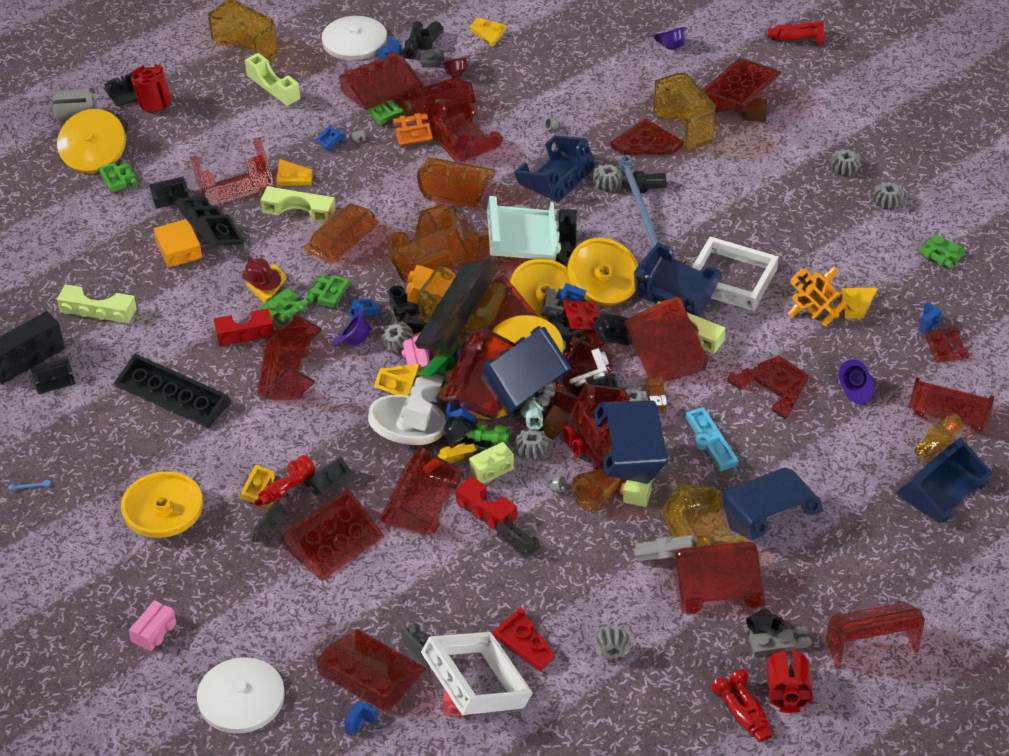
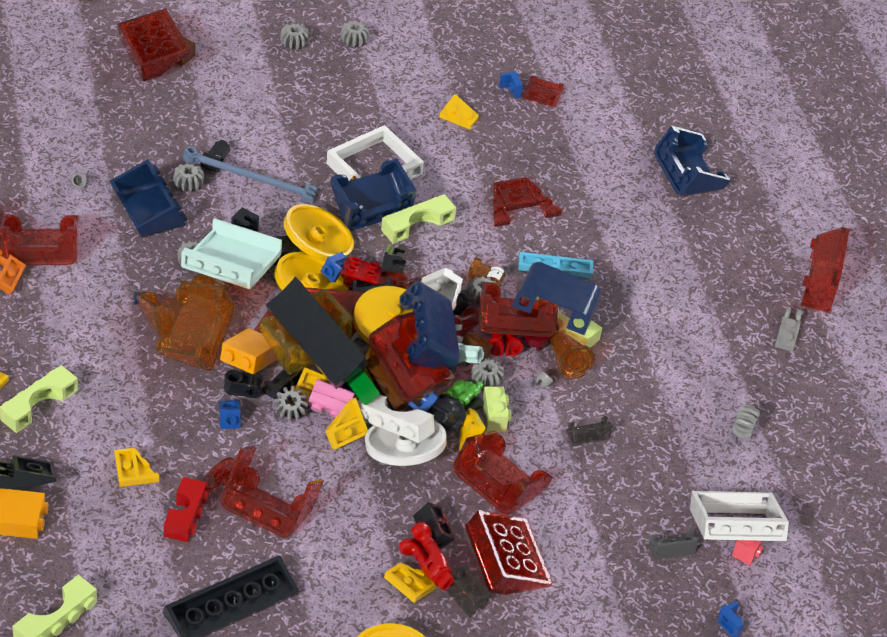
camera: 70 degrees left, 0 degrees up
(261, 275) = (123, 466): dark red piece -> none
(281, 303) = (168, 470): bright green plate -> none
(332, 290) = (186, 425): bright green plate -> none
(341, 233) = (108, 384): clear orange windscreen -> none
(355, 331) = (255, 431): dark purple piece -> none
(369, 669) = (680, 591): clear red slope -> none
(453, 181) = (115, 272): clear orange windscreen -> none
(472, 497) = (525, 440): red arch -> none
(521, 638) = (705, 477): red wing -> none
(549, 306) = (335, 281): dark grey bracket -> none
(646, 139) = (159, 132): clear red plate -> none
(663, 548) = (668, 343): light grey piece -> none
(666, 341) = (436, 234): clear red slope -> none
(672, 39) = (37, 52): dark purple piece -> none
(683, 98) = (159, 83): clear yellow windscreen -> none
(695, 512) = (654, 320): clear yellow windscreen -> none
(718, 574) = (715, 331): clear red windscreen -> none
(749, 716) = (844, 378): red piece -> none
(764, 496) = (664, 262): dark blue windscreen -> none
(765, 622) = (768, 327): black piece -> none
(797, 685) = (838, 339): red cylinder -> none
(816, 295) = (447, 125): light orange piece -> none
(856, 381) = (556, 154): dark purple piece -> none
(938, 437) = (641, 143): clear yellow piece -> none
(942, 251) = (439, 41): bright green plate -> none
(943, 401) = (620, 115): clear red windscreen -> none

